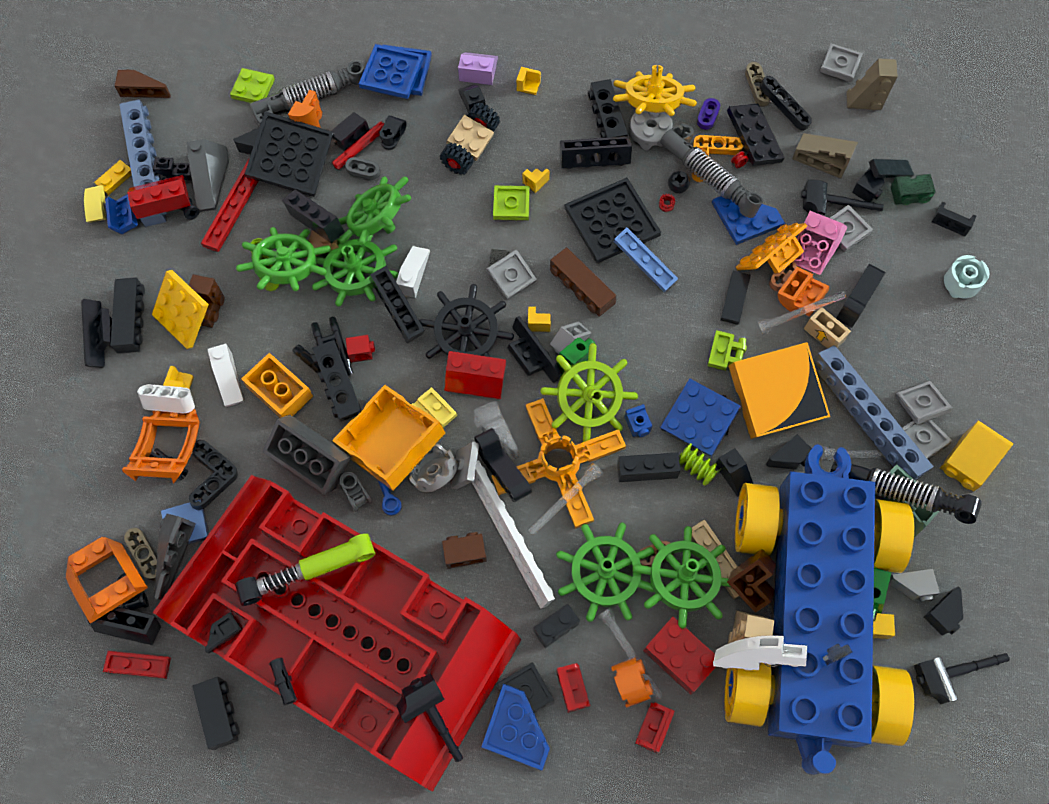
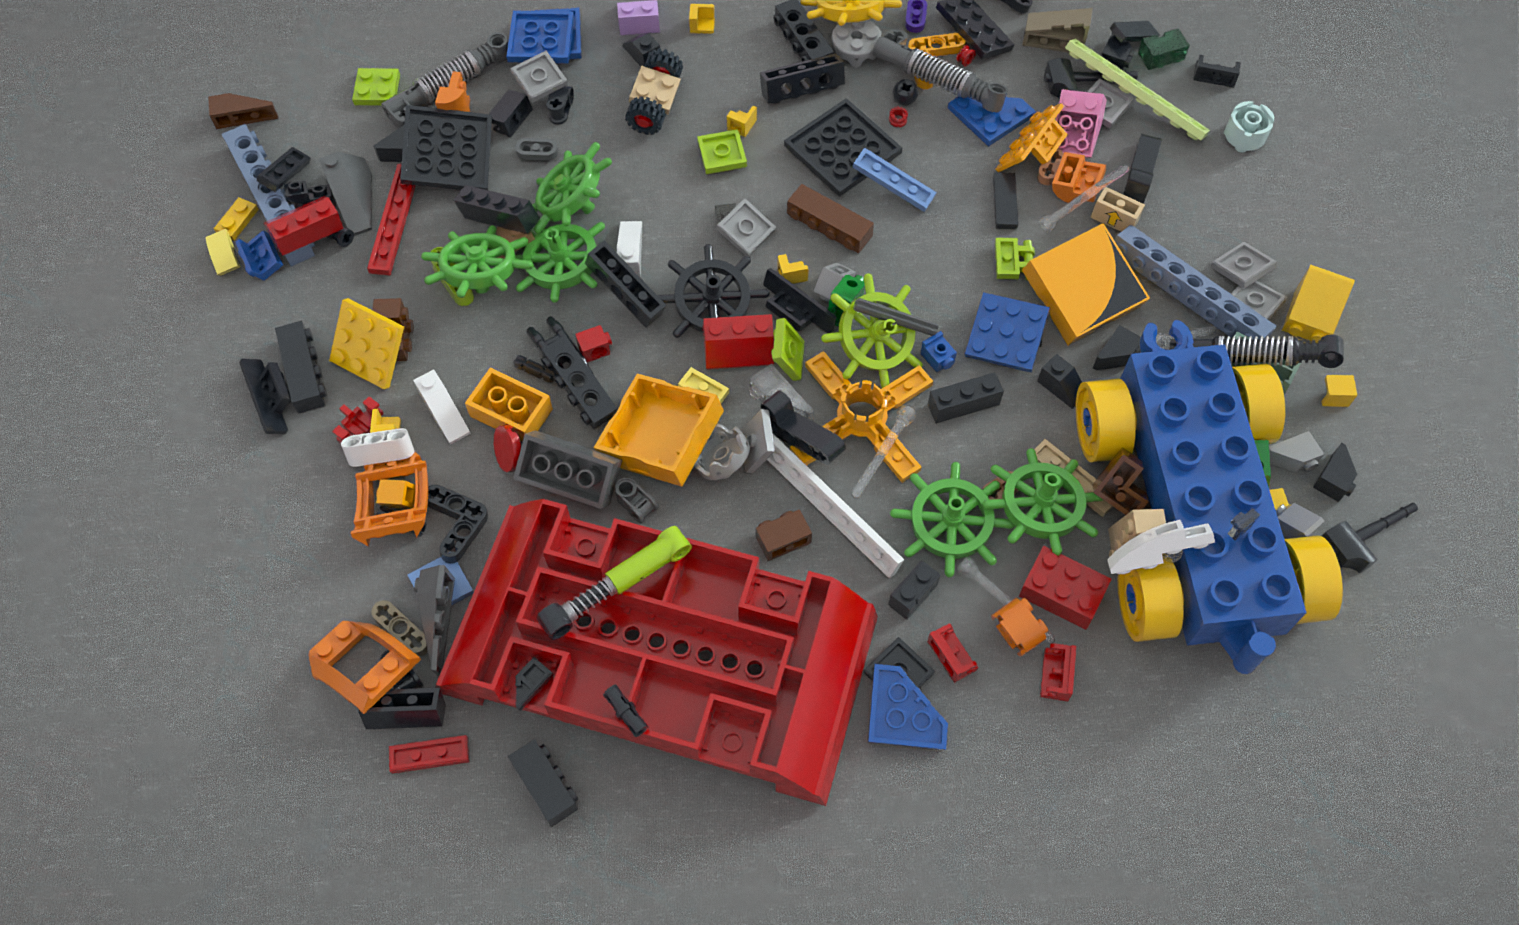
camera: 15 degrees left, 5 degrees down
(157, 371) = (356, 421): none -> red piece
(158, 144) = (283, 169): none -> black tile
(168, 441) = (396, 494): none -> light orange brick
(264, 423) = (506, 447): none -> red tile
(358, 146) = (523, 126): red axle -> none
(379, 106) = (539, 76): none -> light grey plate
(391, 505) = (681, 505): blue plate -> none
(421, 697) = (794, 687): black piece -> none
(513, 391) = (788, 349): none -> lime plate
(607, 386) = (901, 318): none -> dark grey axle
(698, 465) = (1020, 383): lime piece -> none
(881, 226) = (1143, 94): none -> yellowish green plate
(892, 651) = (1297, 521): none -> light grey slope
(972, 537) = (1340, 390): none -> yellow panel

